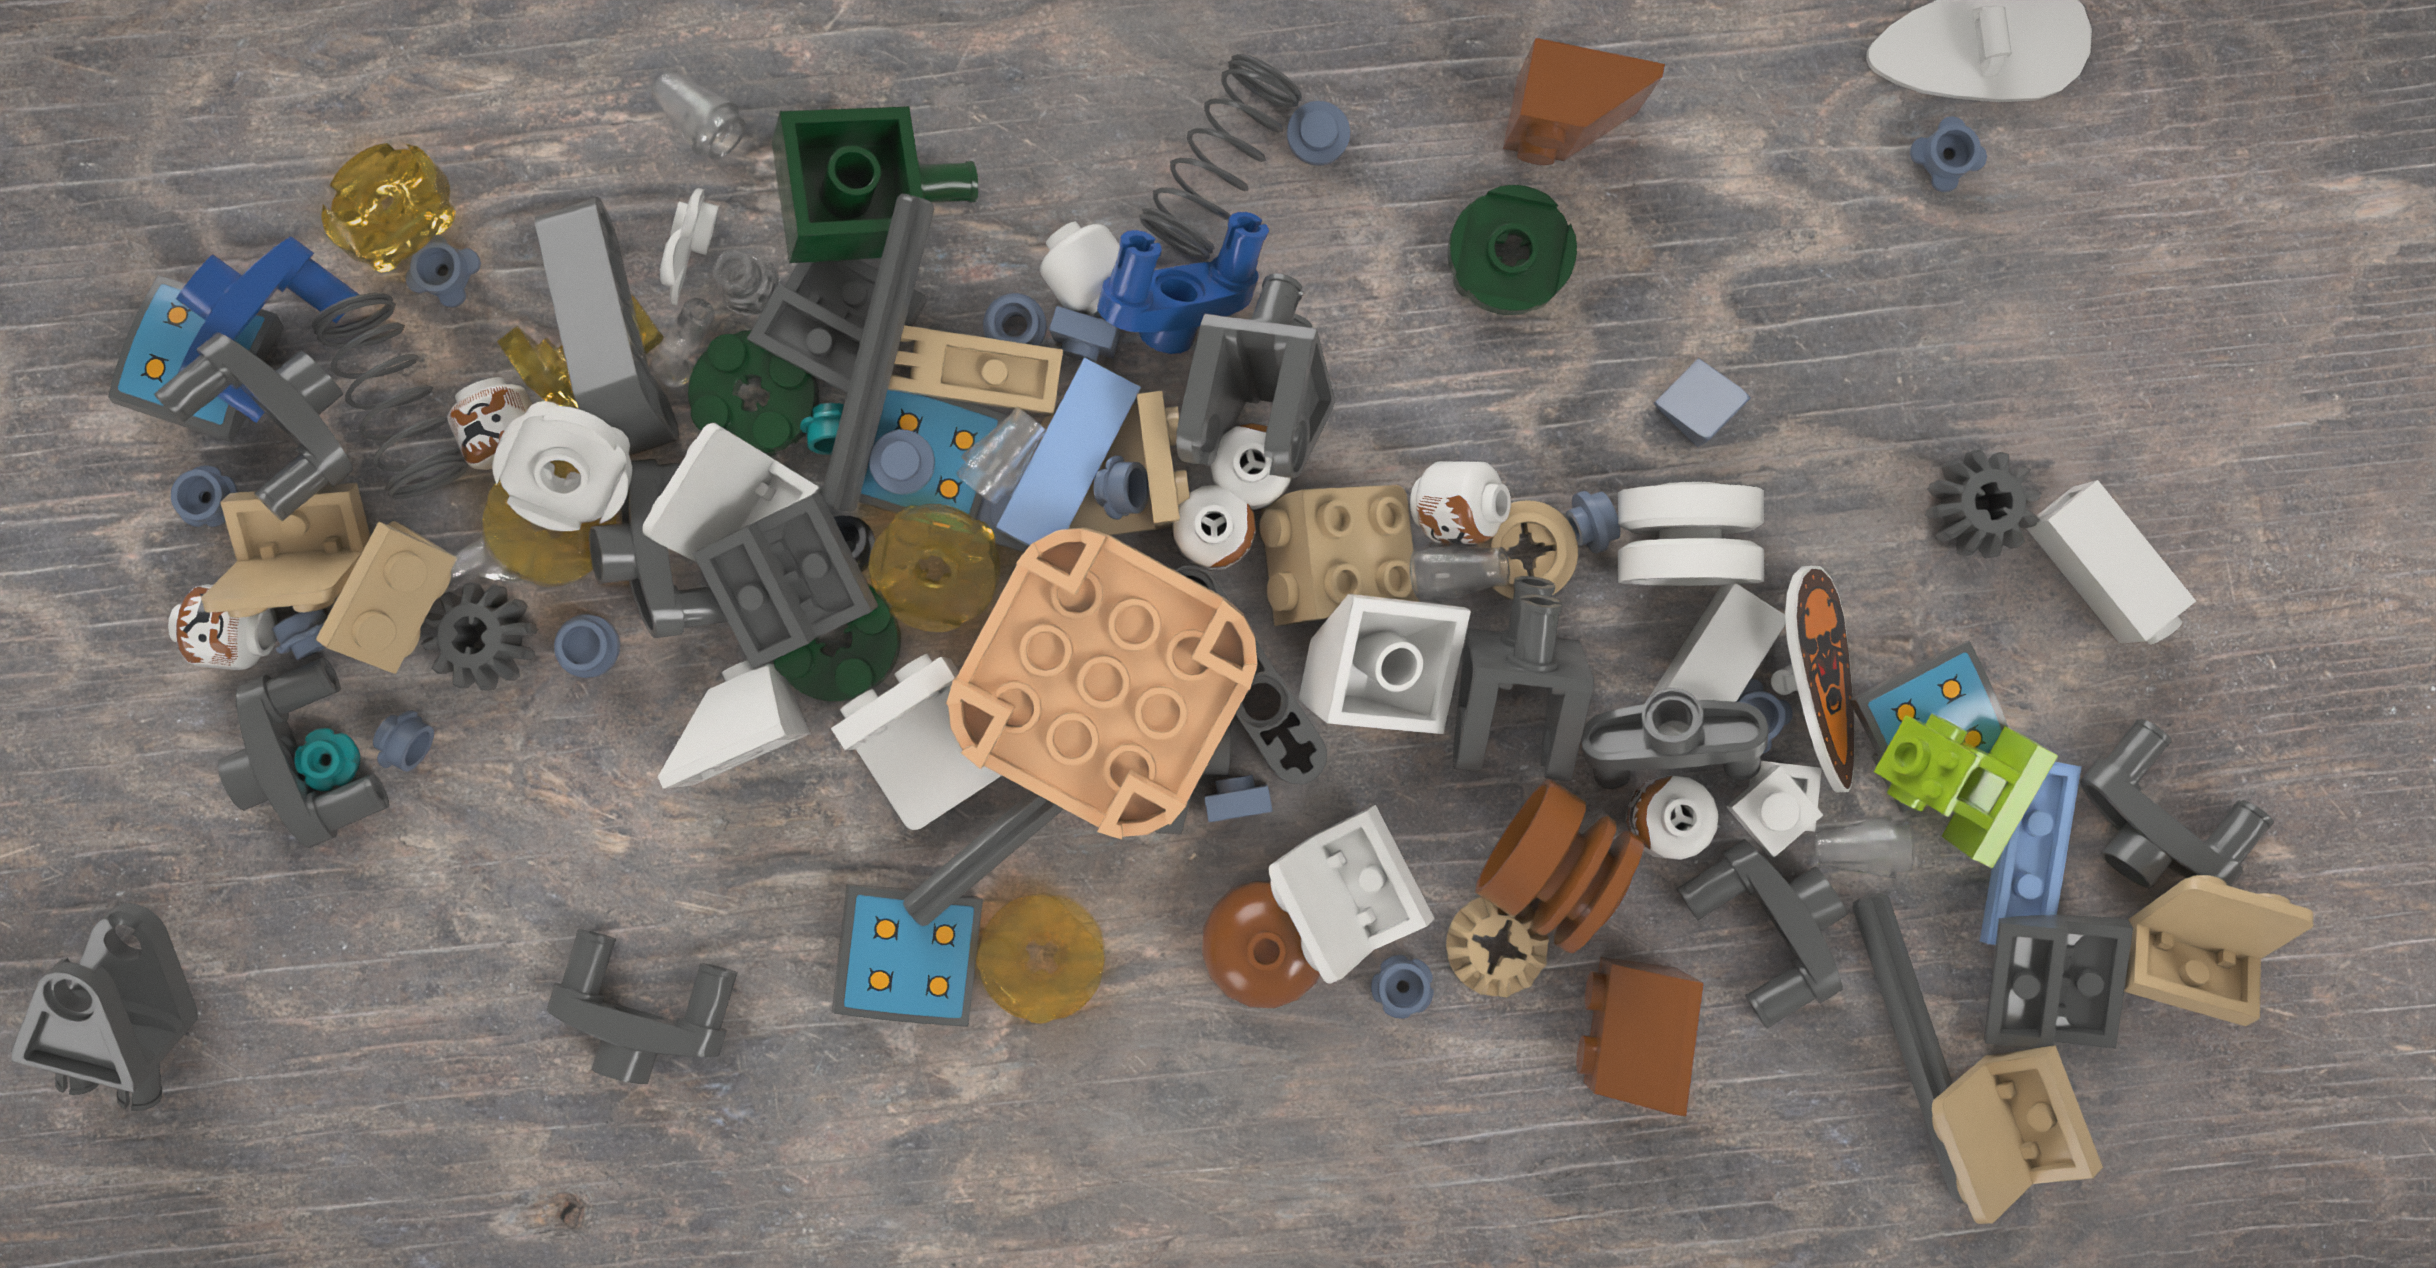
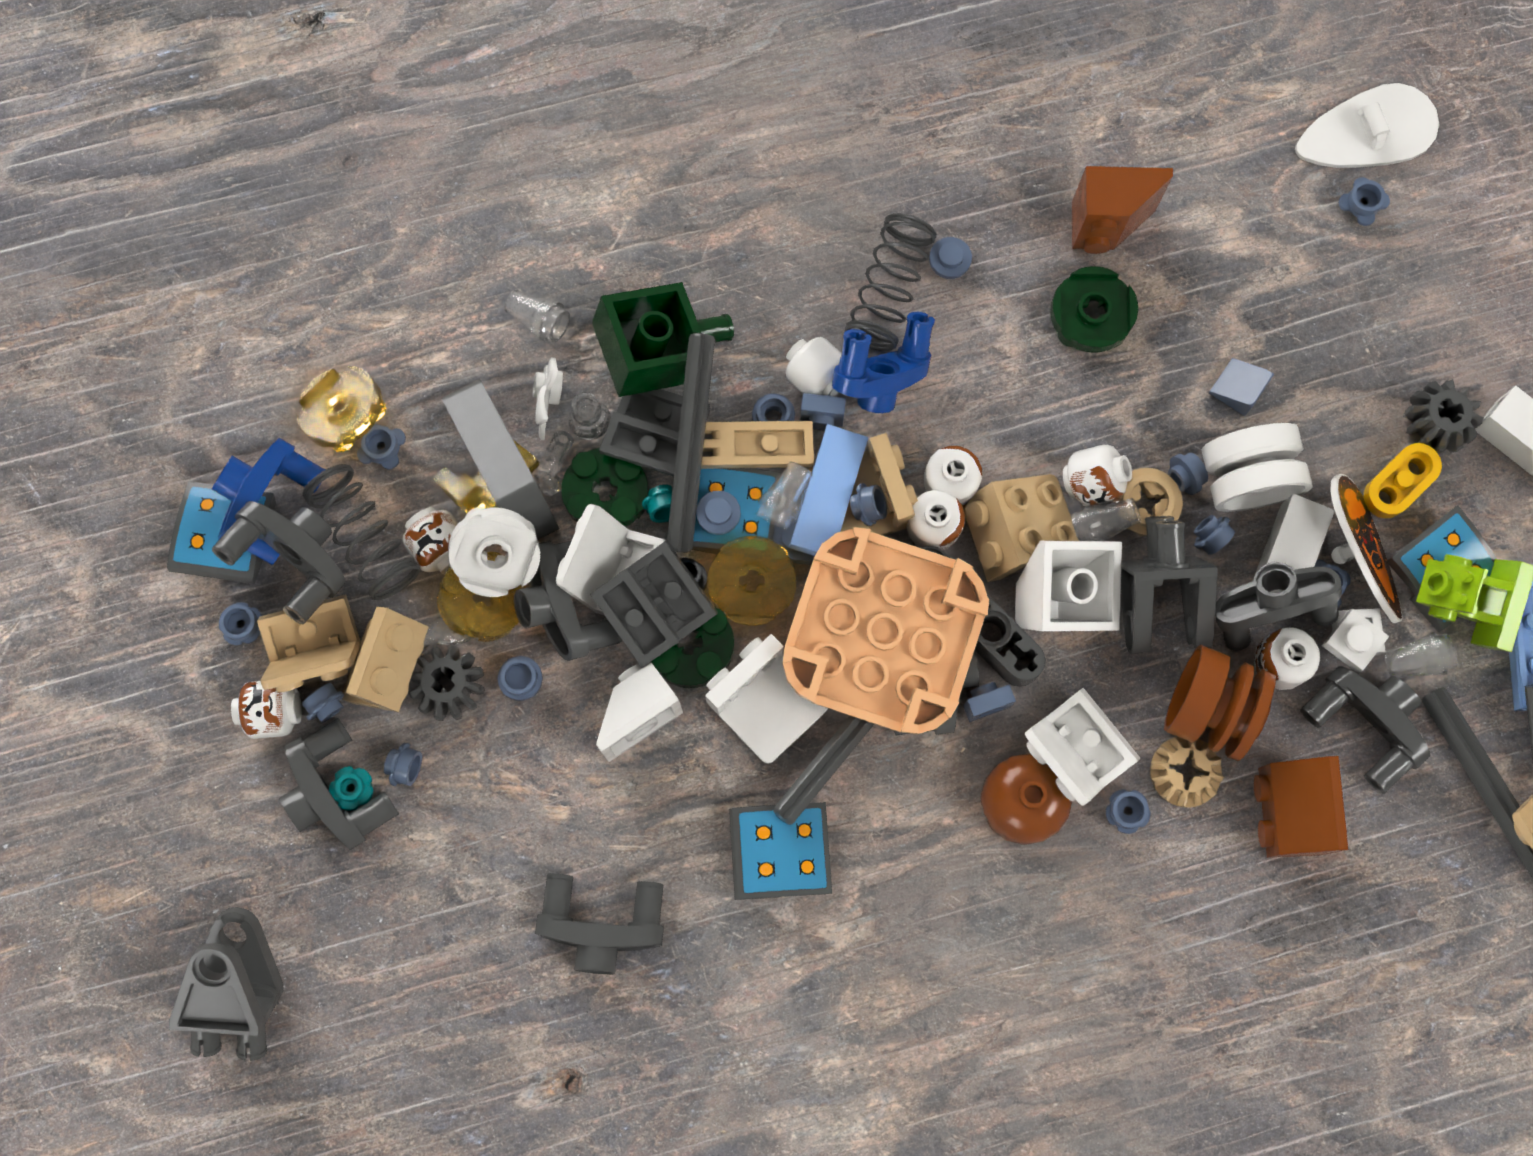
camera: 10 degrees left, 10 degrees down
(1042, 994) = (899, 830): clear yellow plate -> none
(1253, 361) = (948, 405): dark grey piece -> none
(1610, 616) = (1213, 534): none -> sand blue plate
(1898, 588) = (1400, 482): none -> yellow plate

